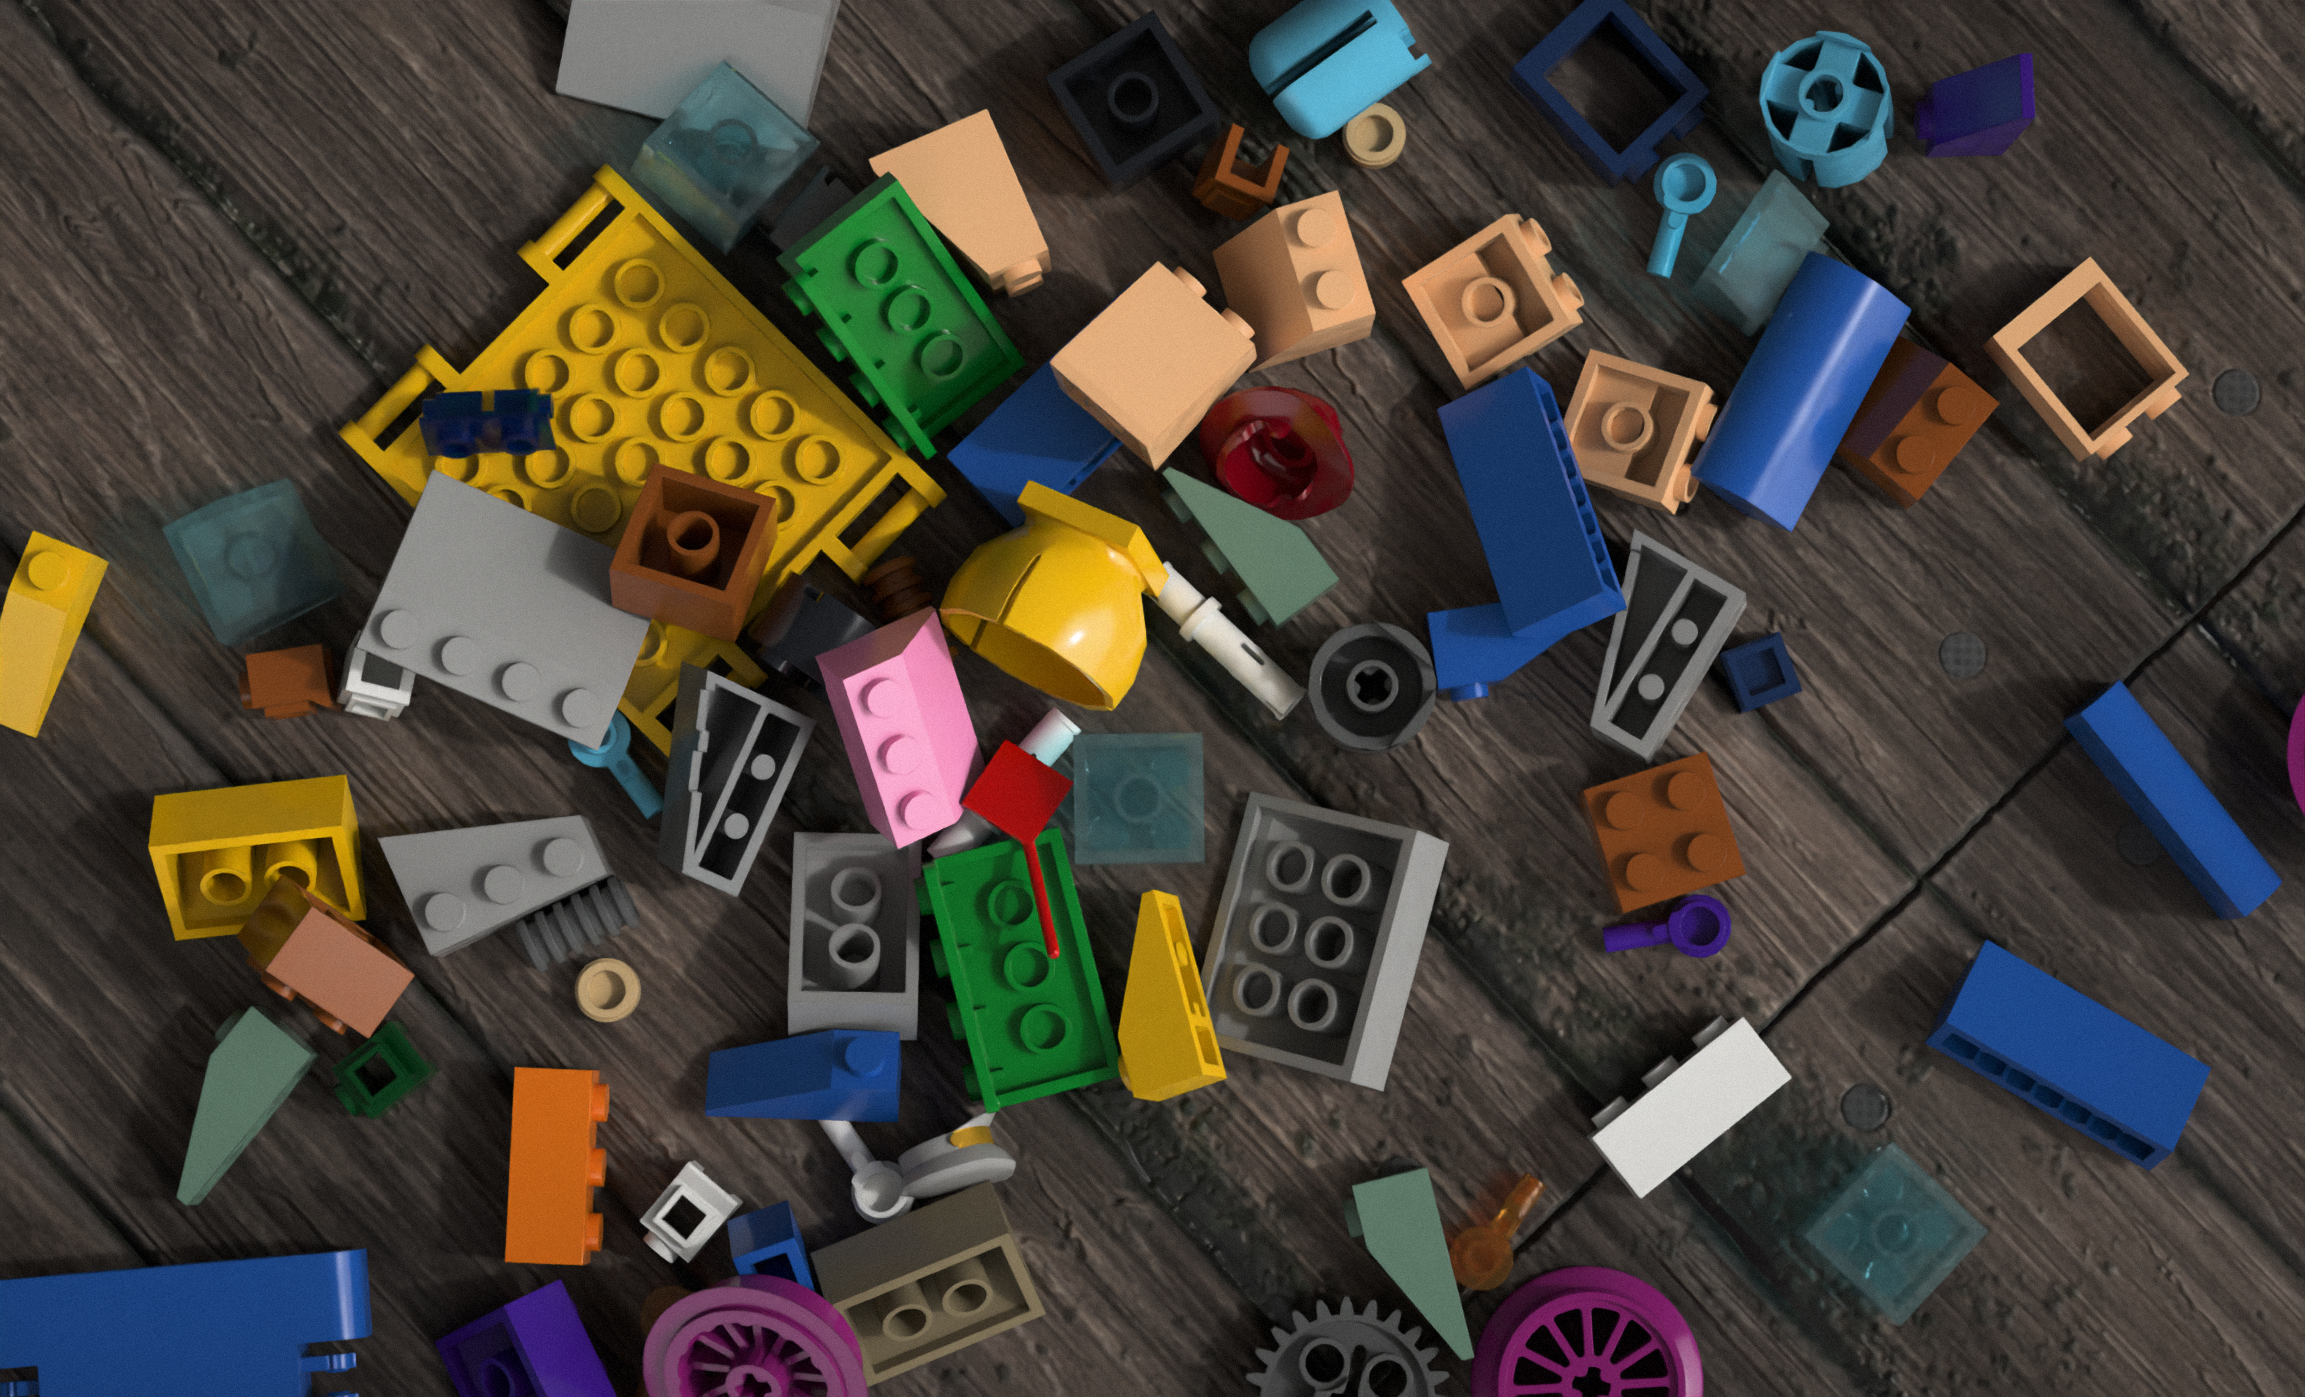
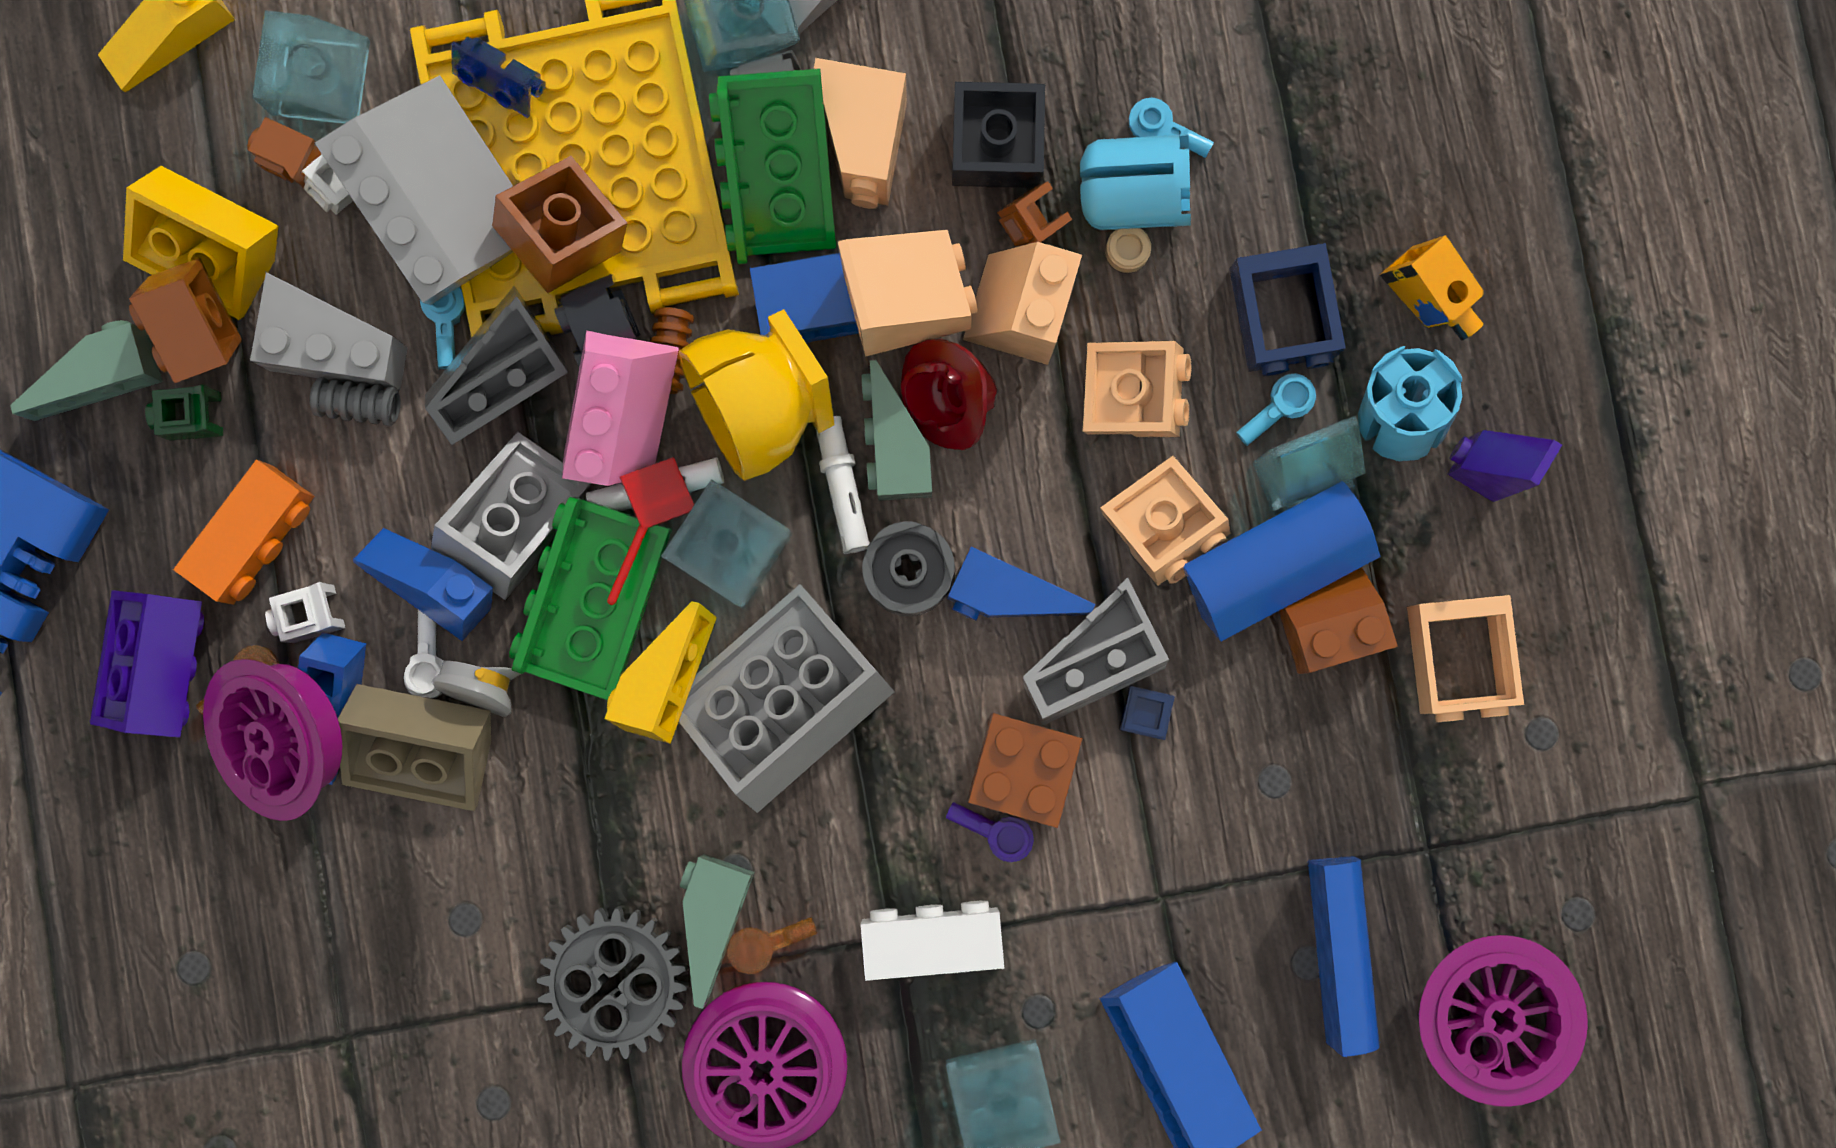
camera: 30 degrees right, 0 degrees up
(607, 990) = (349, 452): tan tile -> none
(1531, 507) = (1074, 524): blue brick -> none

